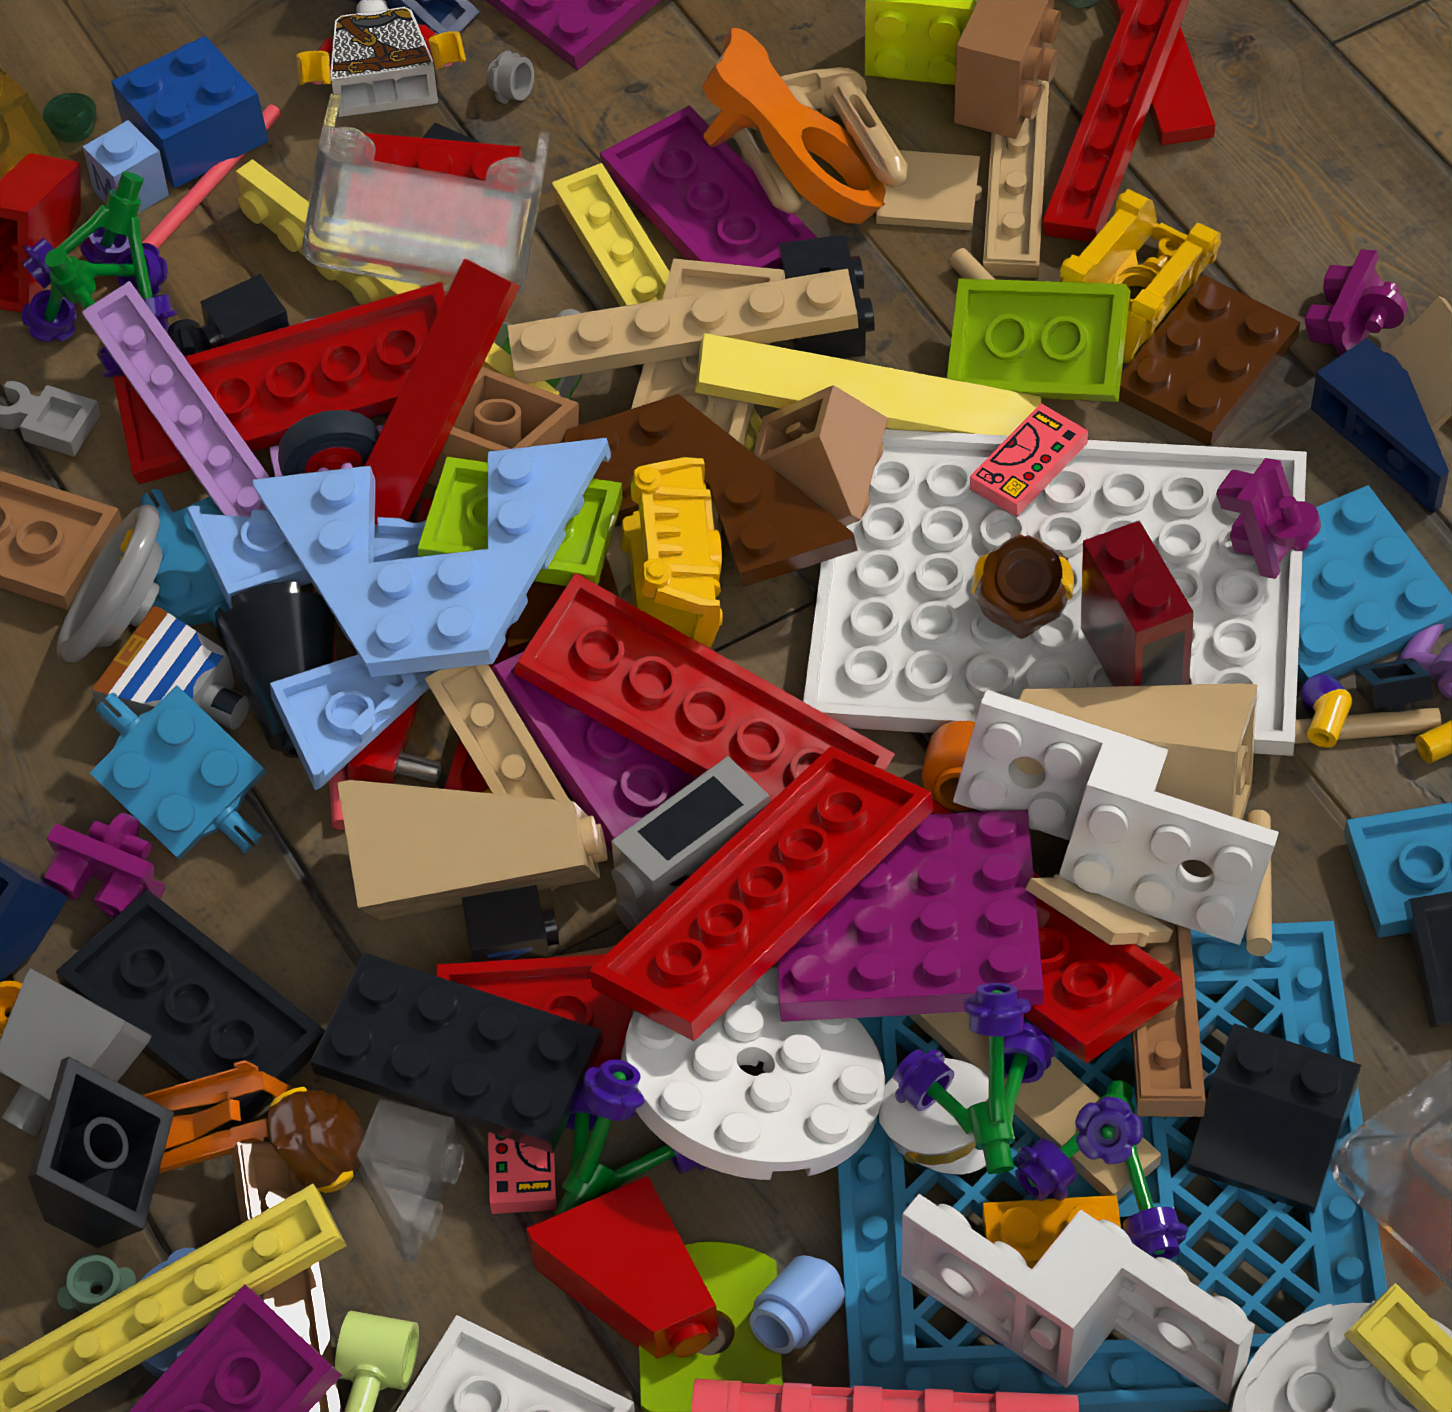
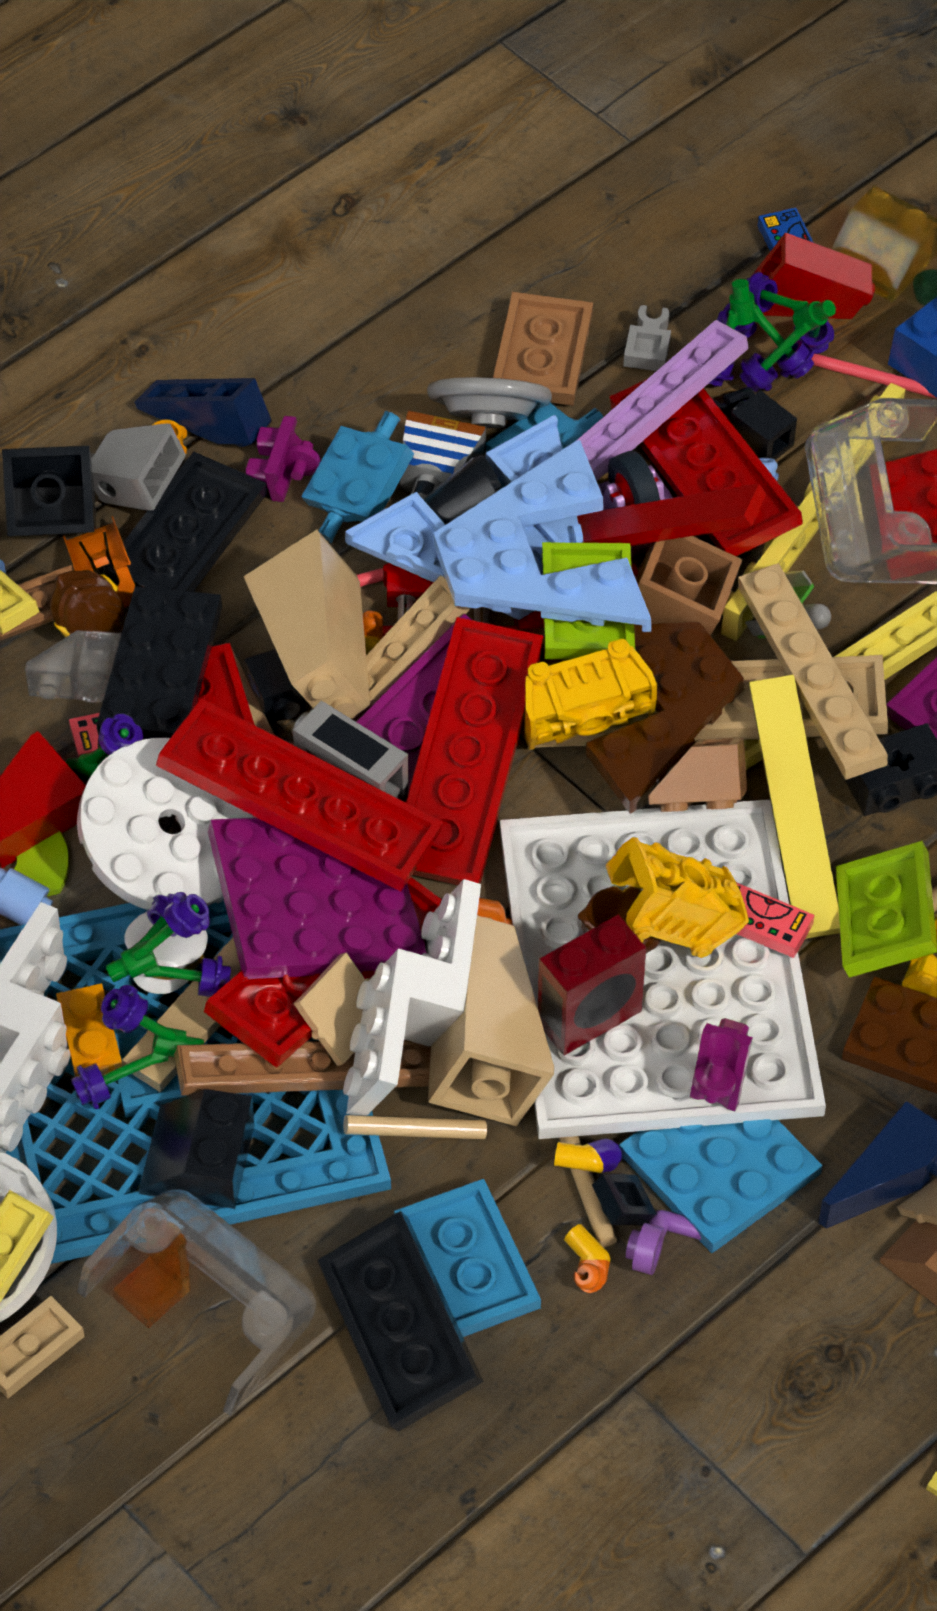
camera: 75 degrees right, 0 degrees up
(130, 151) = (876, 324): light blue brick -> none
(1011, 489) = (680, 897): none -> yellow piece

